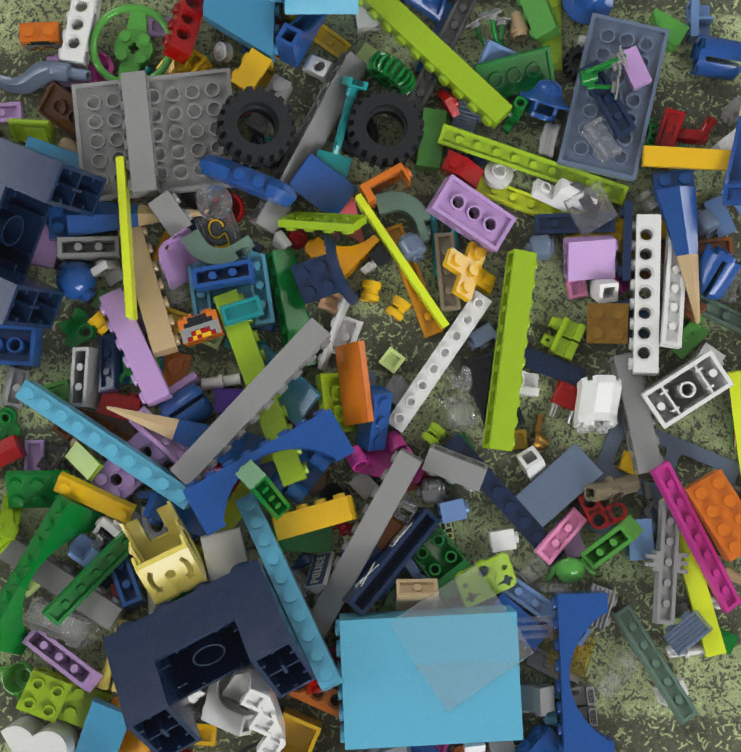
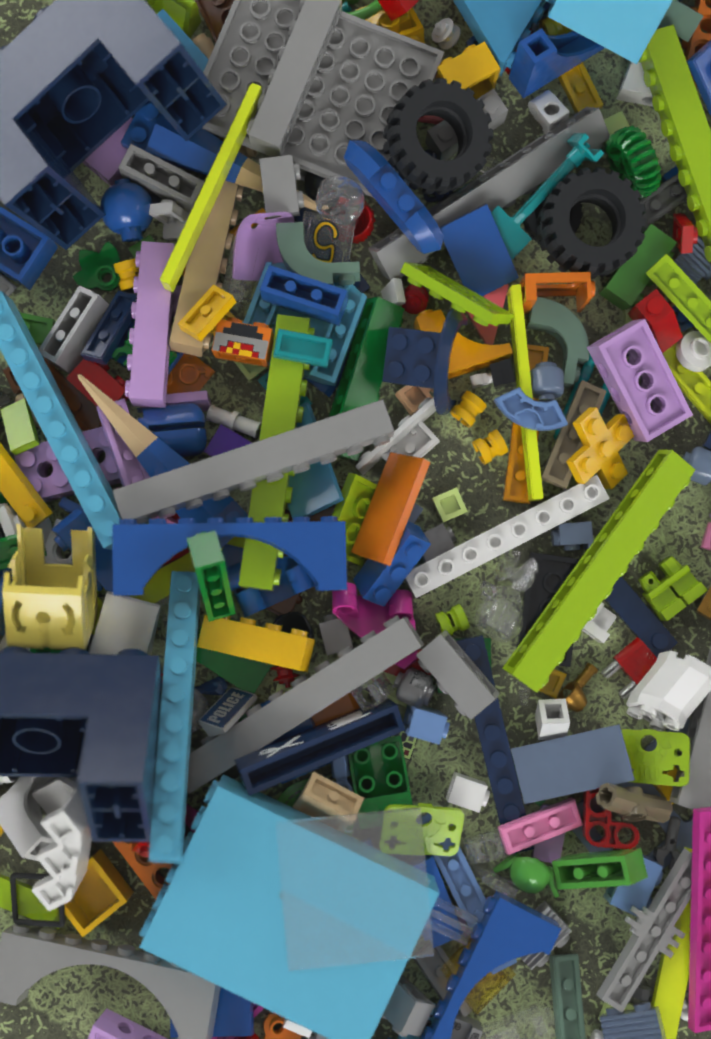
camera: 25 degrees right, 0 degrees up
(167, 321) = (207, 313): none -> yellow plate
(411, 273) = (531, 413): none -> medium blue tile
(609, 459) = (650, 765): none -> lime axle

